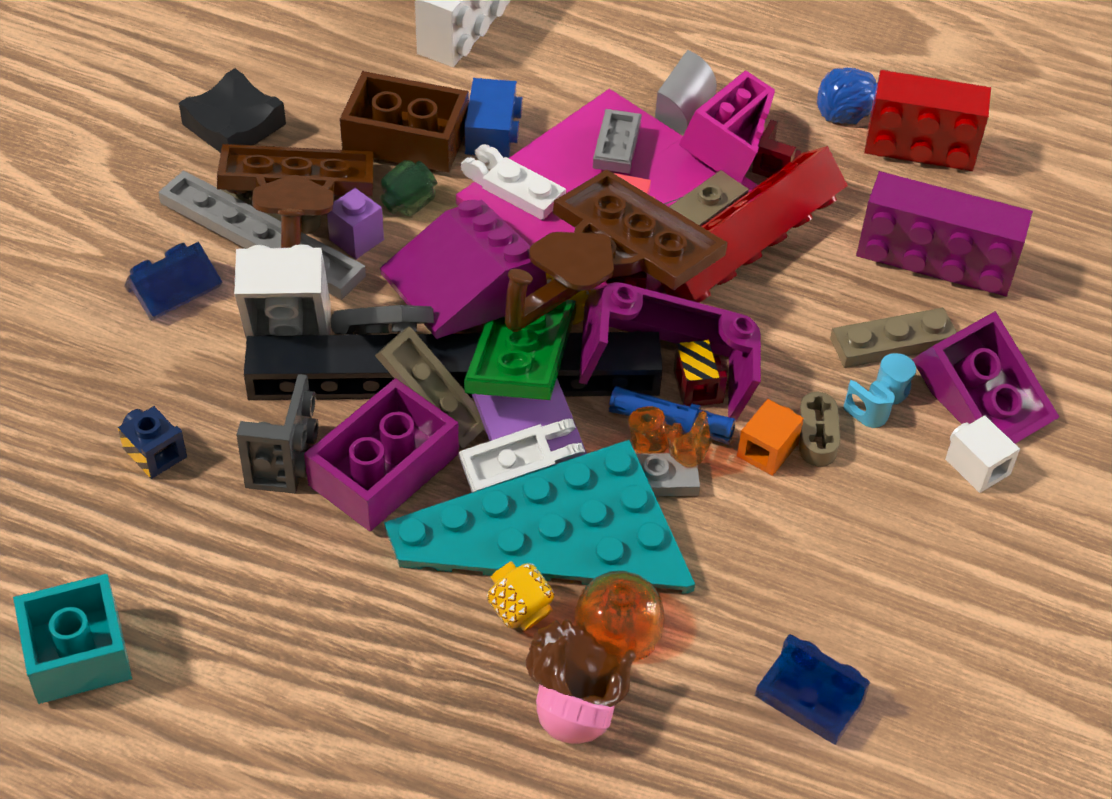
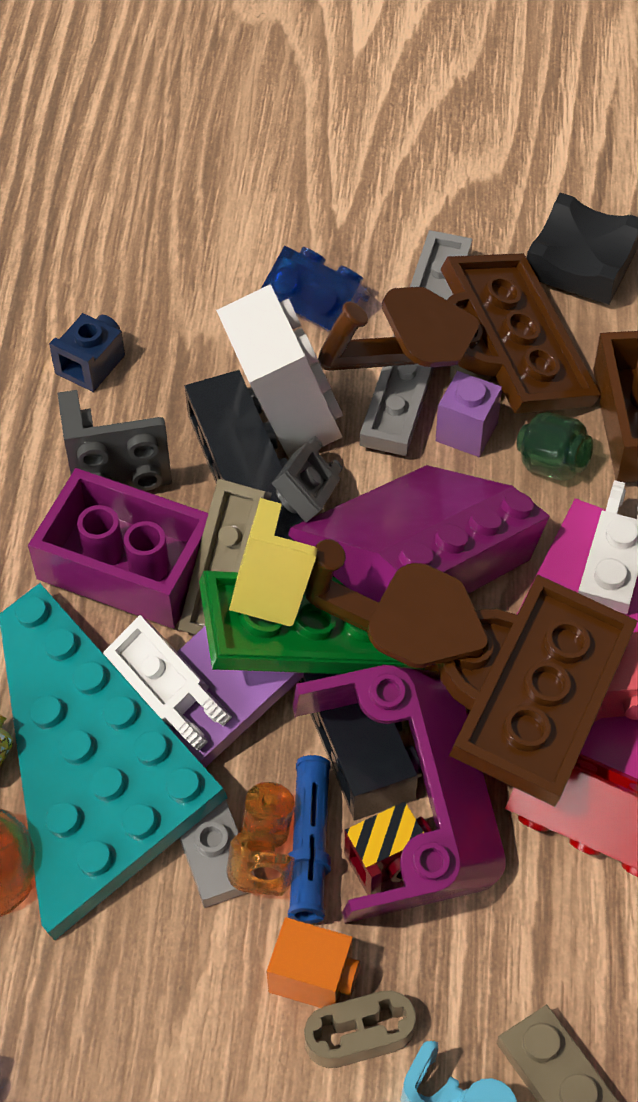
camera: 75 degrees right, 5 degrees up
(498, 324) = (272, 570): none -> light yellow panel

